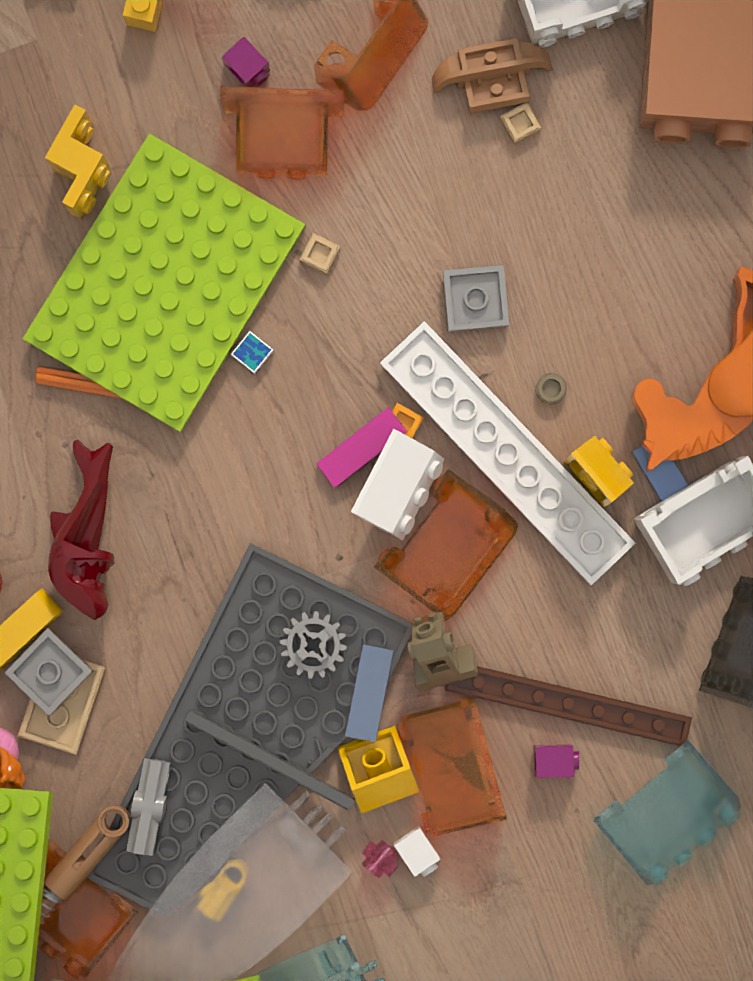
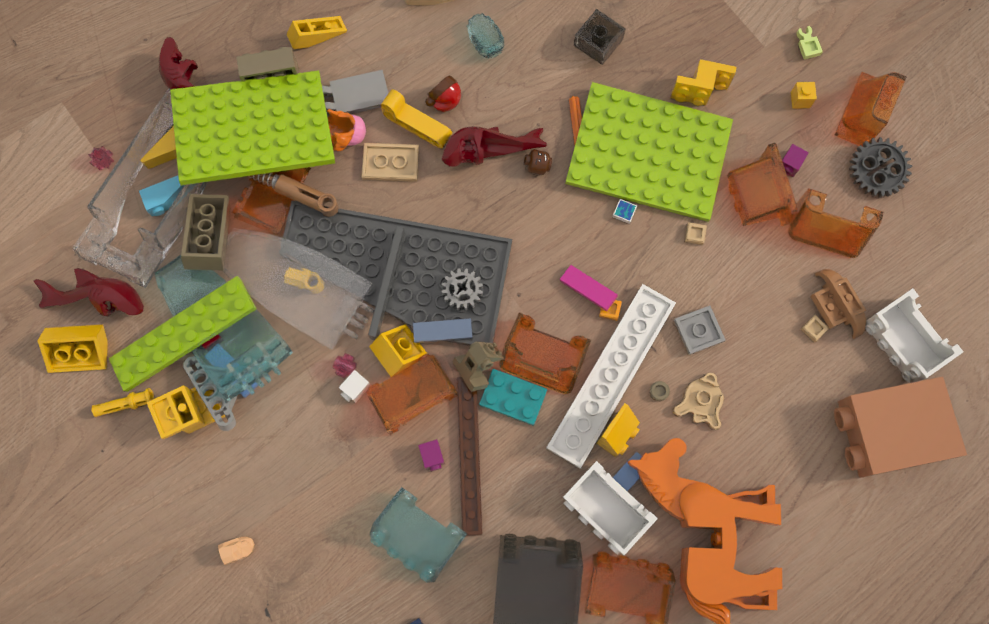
camera: 70 degrees right, 10 degrees down
(49, 671) = (405, 147): light grey plate -> none
(133, 465) = (538, 162): none -> reddish brown head
(148, 806) = (341, 222): light grey piece -> none
(398, 485) = (572, 312): white slope -> none
(499, 612) = (513, 397): none -> teal plate
(583, 327) = (703, 400): none -> tan tile

